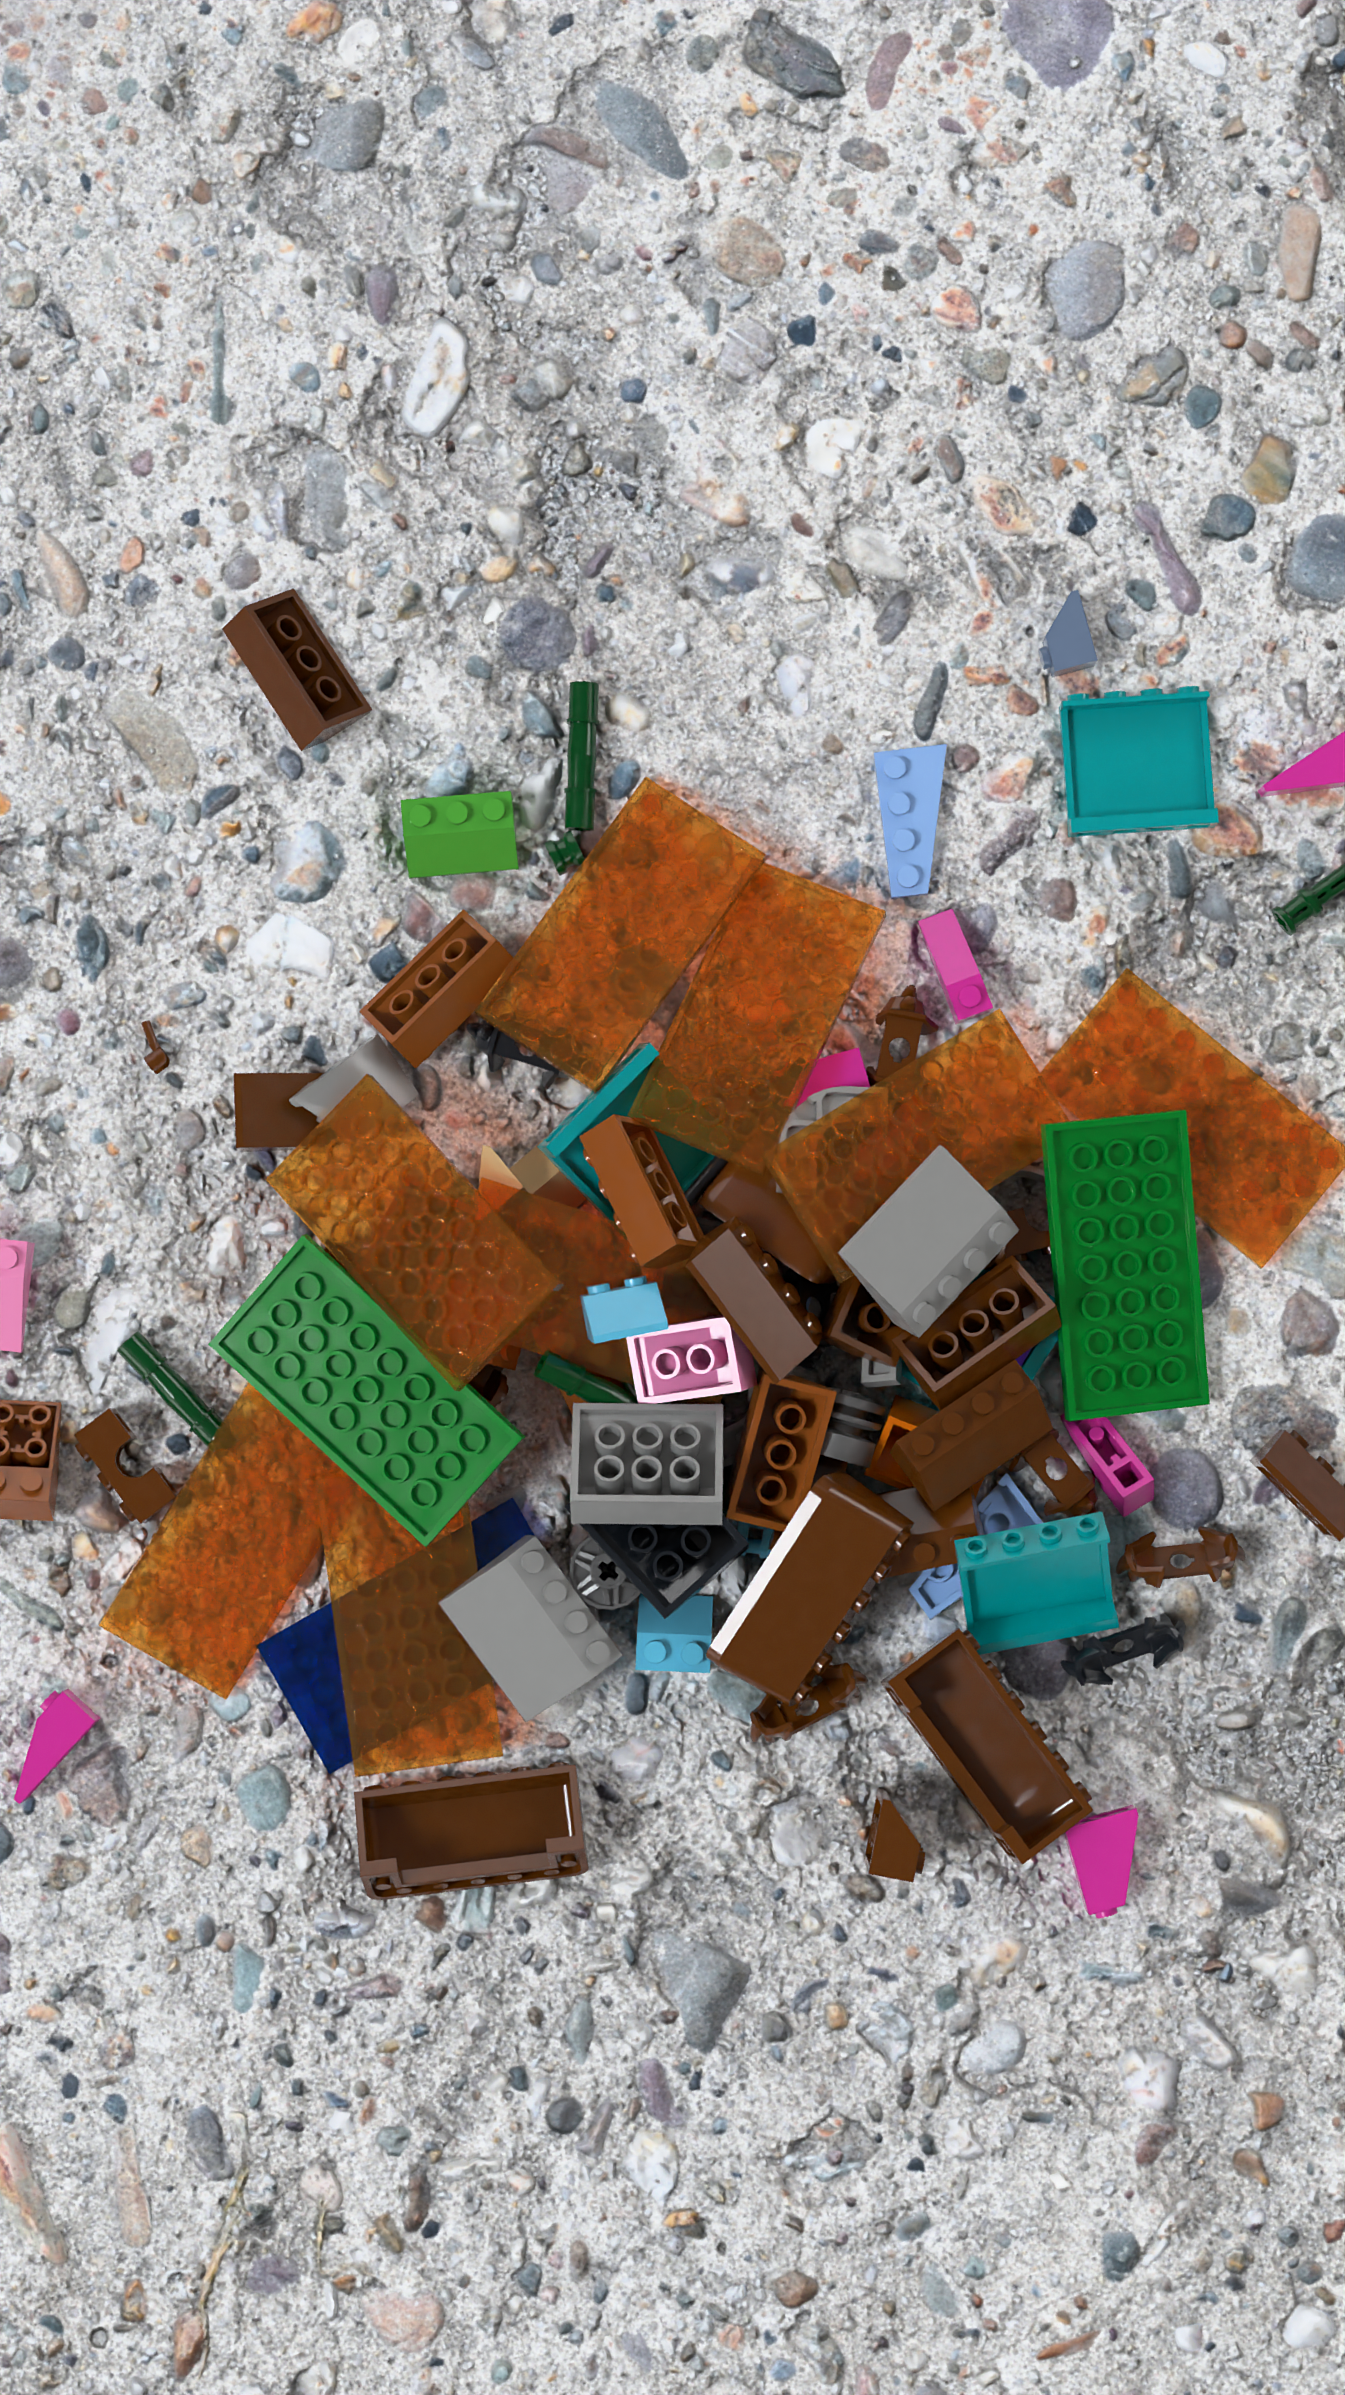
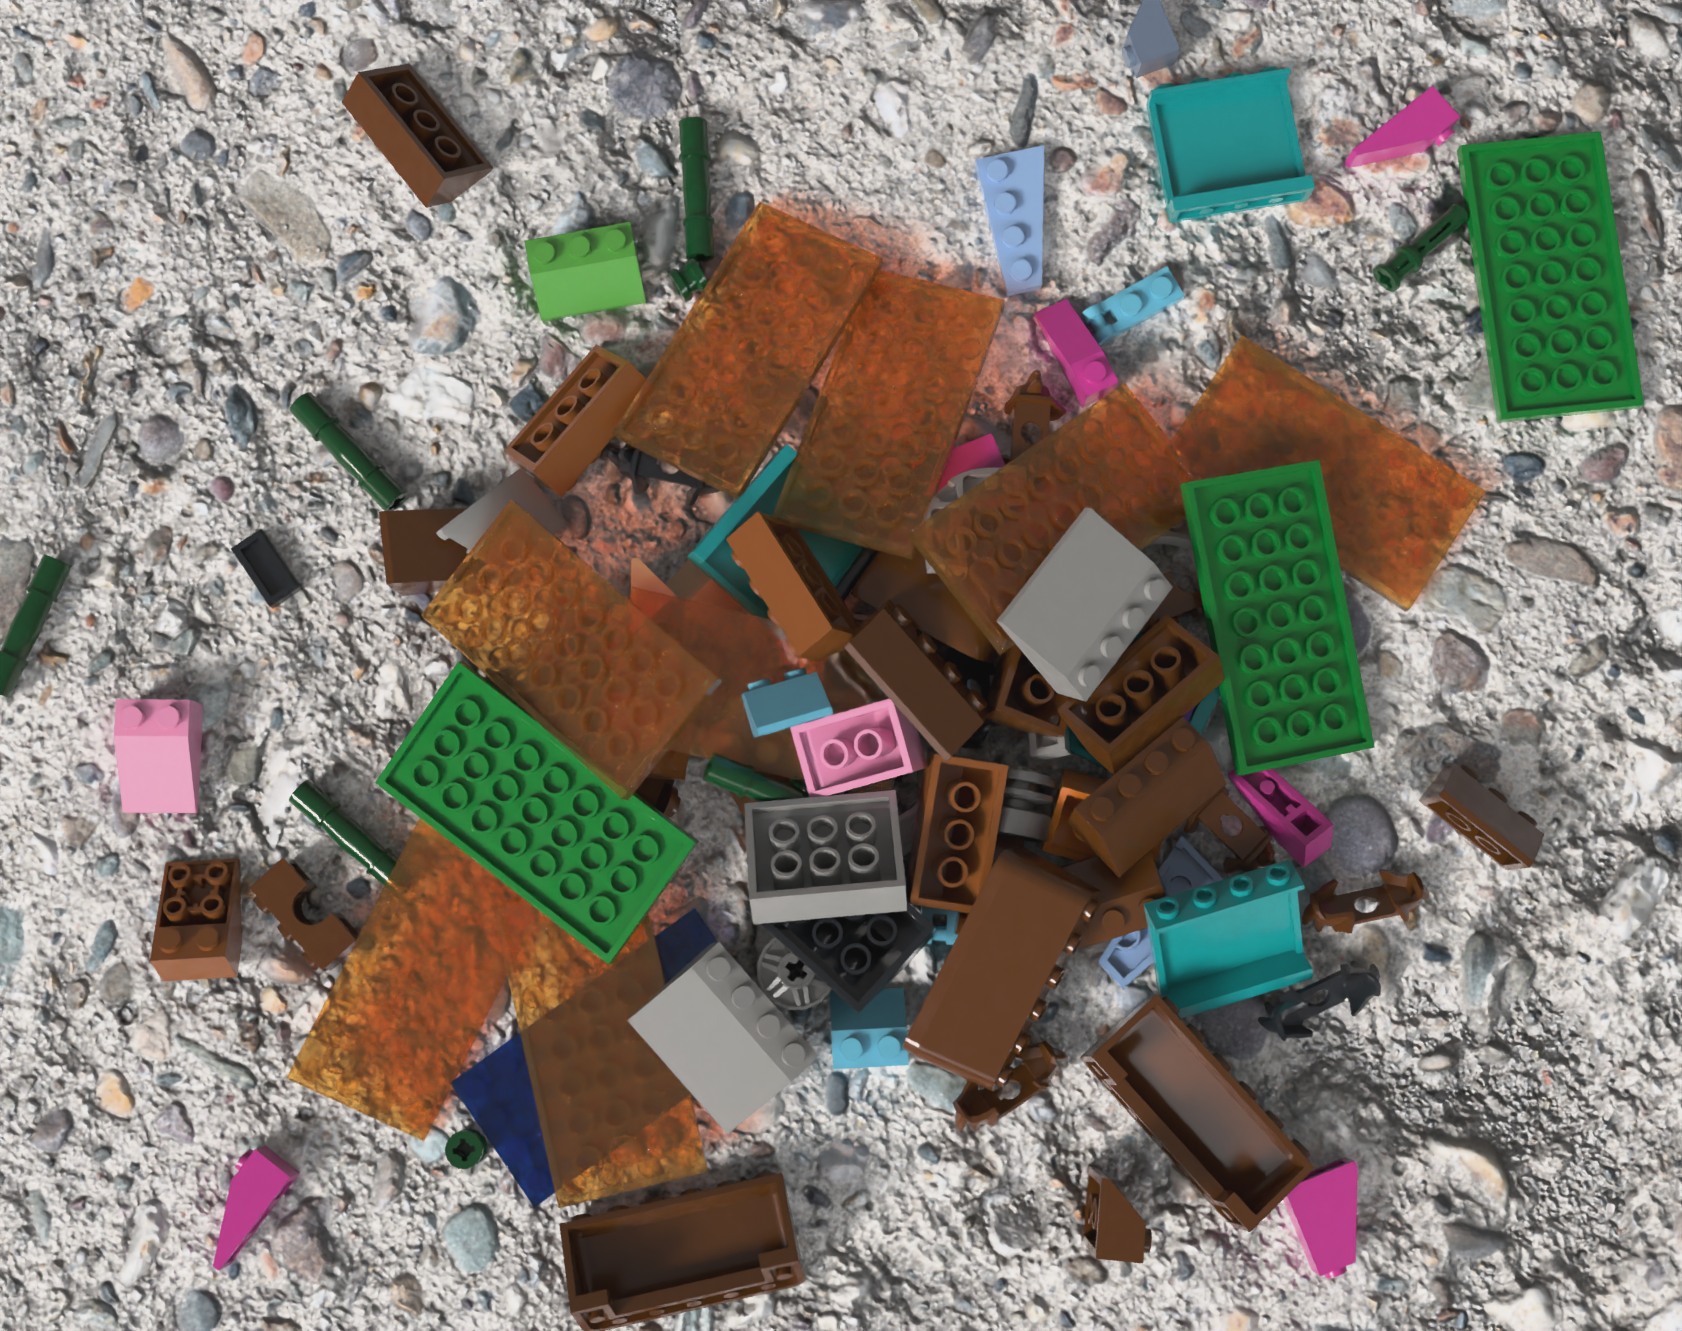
camera: 10 degrees left, 5 degrees down
(109, 1110) = (267, 568): none -> black tile
(157, 1059) = (310, 514): reddish brown hand -> none
(201, 999) = (348, 452): none -> dark green piece
(273, 1708) = (473, 1147): none -> dark green wheel
(1021, 922) = (1134, 305): none -> medium azure plate

